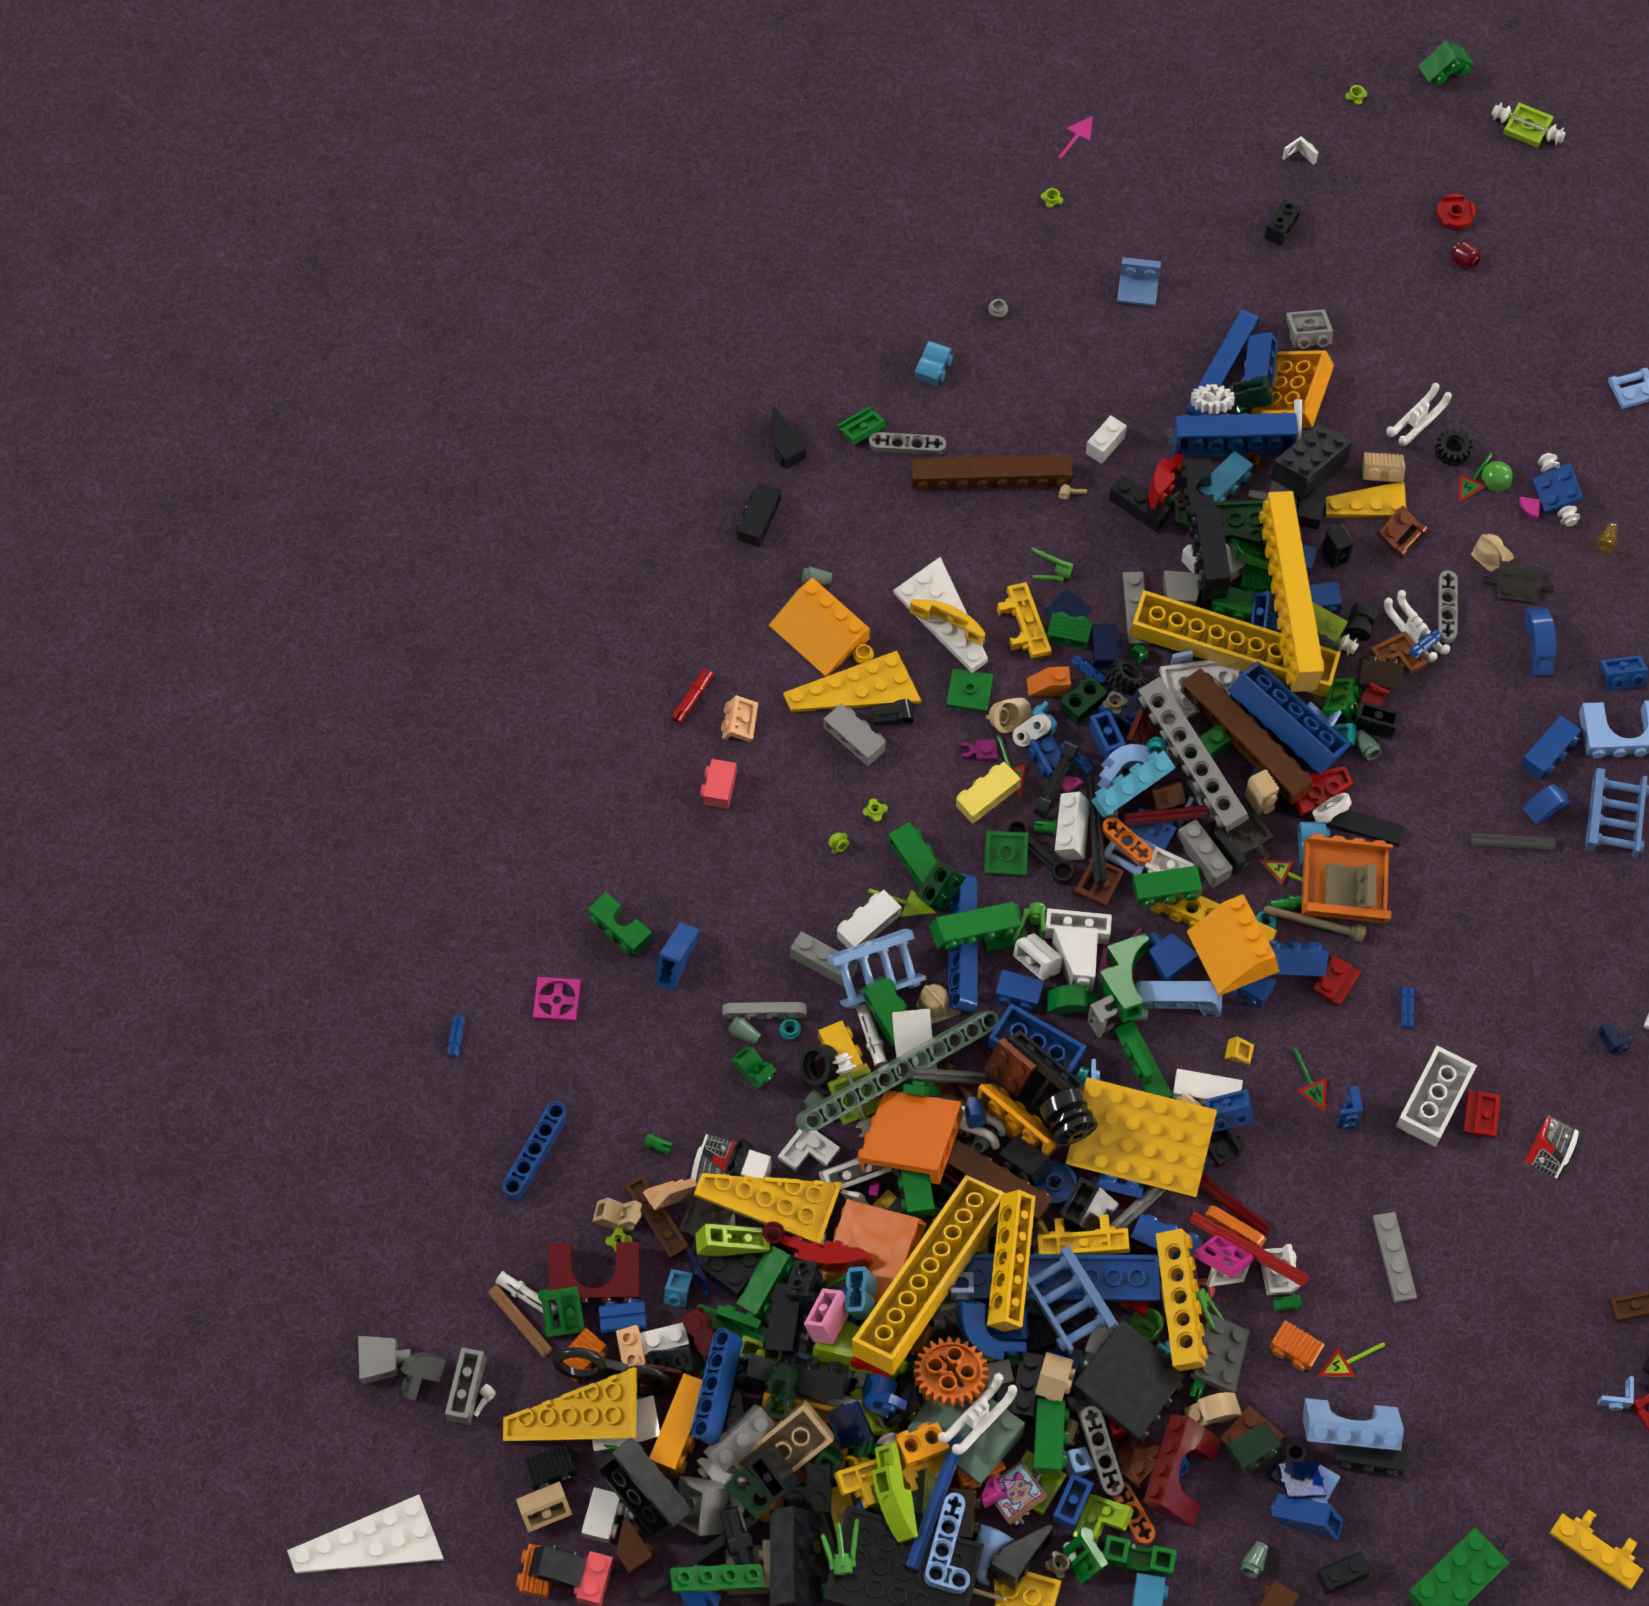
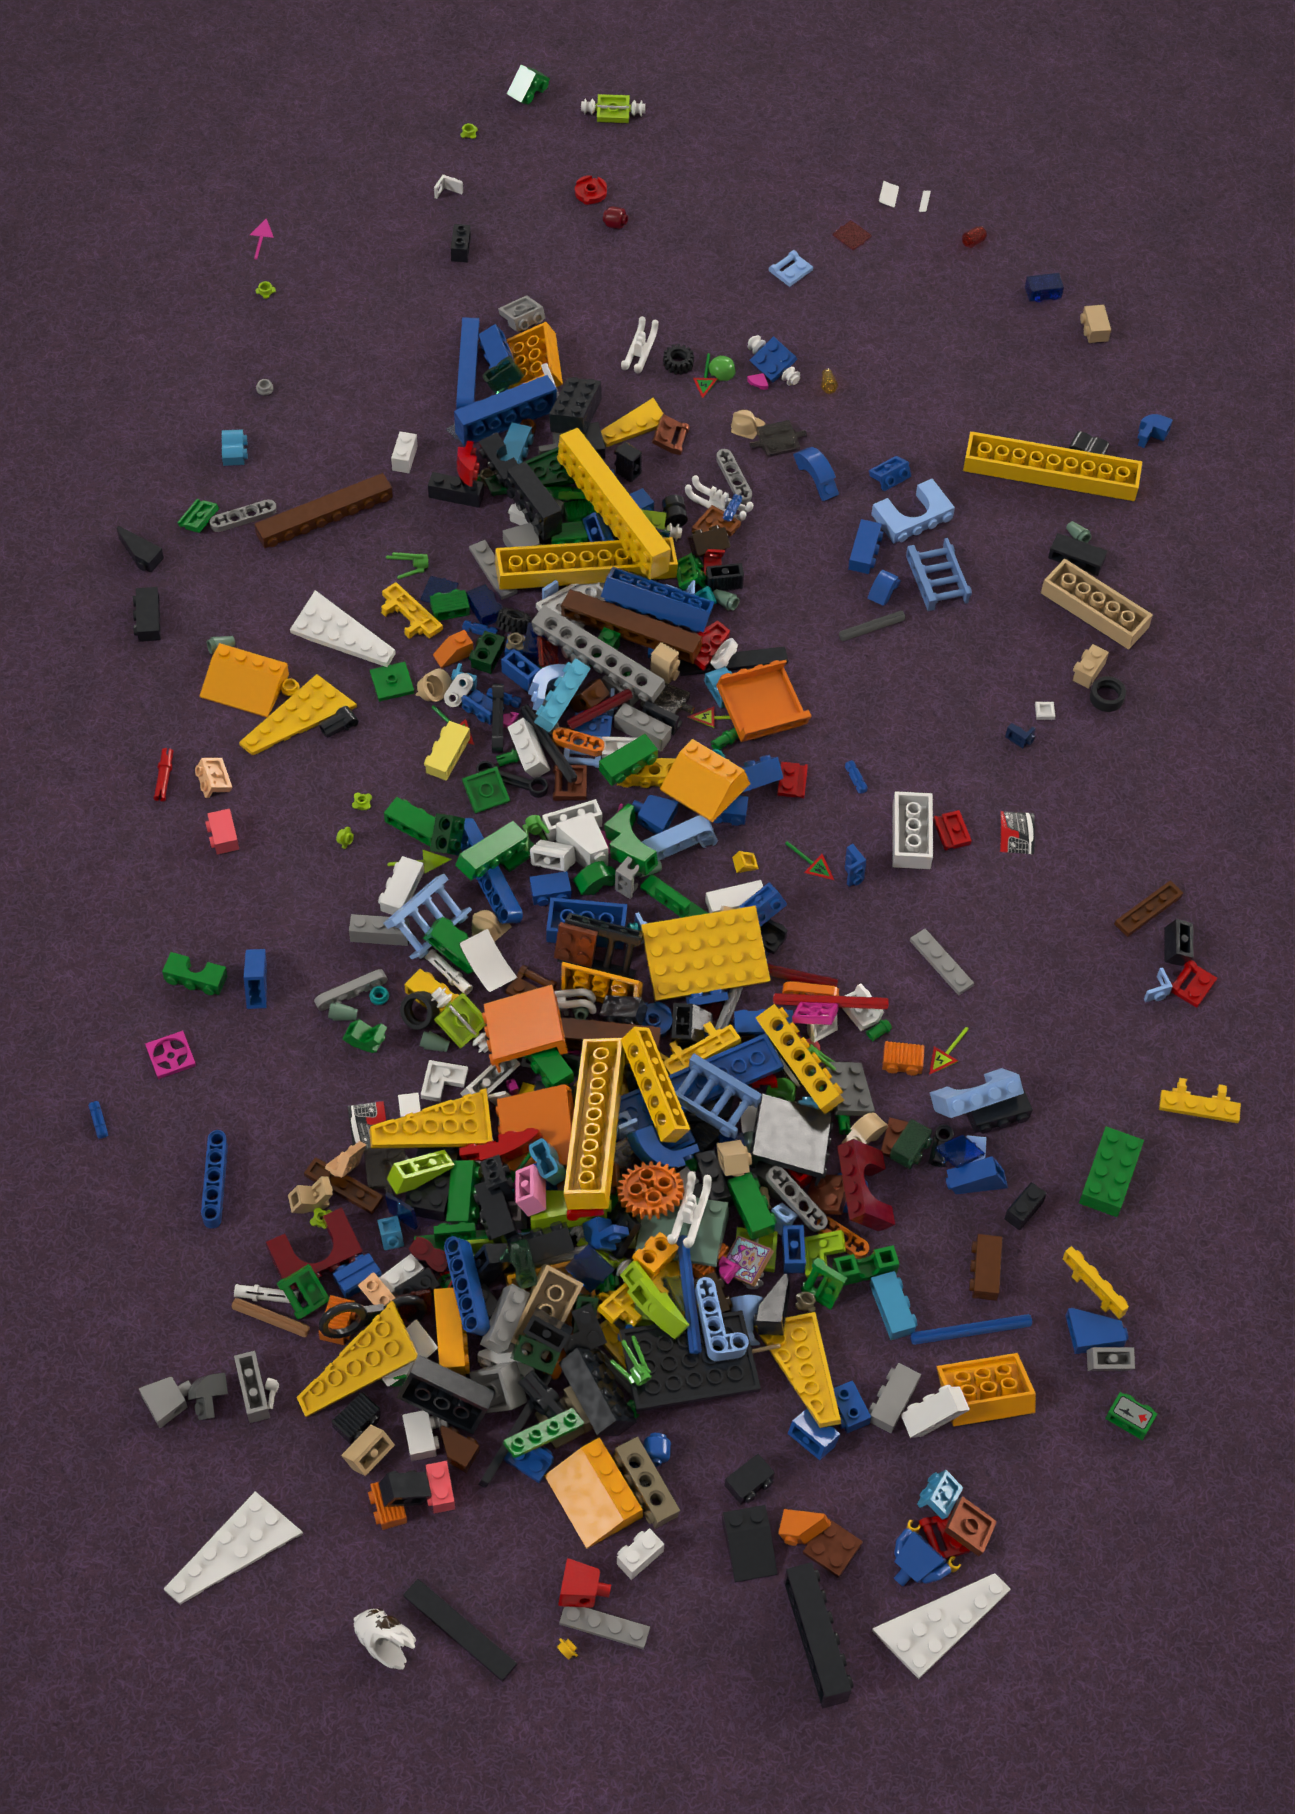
camera: 30 degrees left, 5 degrees down
(657, 1144) = (315, 1129): green pin -> none
(738, 1158) = (389, 1107): black beam -> none
(773, 1232) = (451, 1148): dark red plate -> none
(855, 734) = (315, 750): light grey brick -> none
(889, 1071) = (486, 986): sand green beam -> none
(922, 1088) = (509, 990): green plate -> none
(925, 608) = (349, 627): yellow slope -> none
(947, 1076) = (528, 973): dark grey axle -> none
(975, 1113) = (565, 990): blue brick -> none
(983, 750) = (425, 721): magenta plate -> none
(1066, 490) = (391, 503): tan hand -> none
(1068, 1117) = (643, 958): black wheel -> none
(1138, 281) = (368, 326): medium blue bracket -> none
(1141, 652) = (513, 599): green plate -> none
(1156, 744) = (564, 658): teal plate -> none
(1212, 399) = (475, 389): white gear -> none
(1254, 1561) = (954, 1231): sand green cone -> none
(1350, 885) = (769, 702): dark tan bracket -> none
(1356, 932) = (789, 739): dark tan piece -> none
(1383, 467) = (632, 393): tan brick -> none

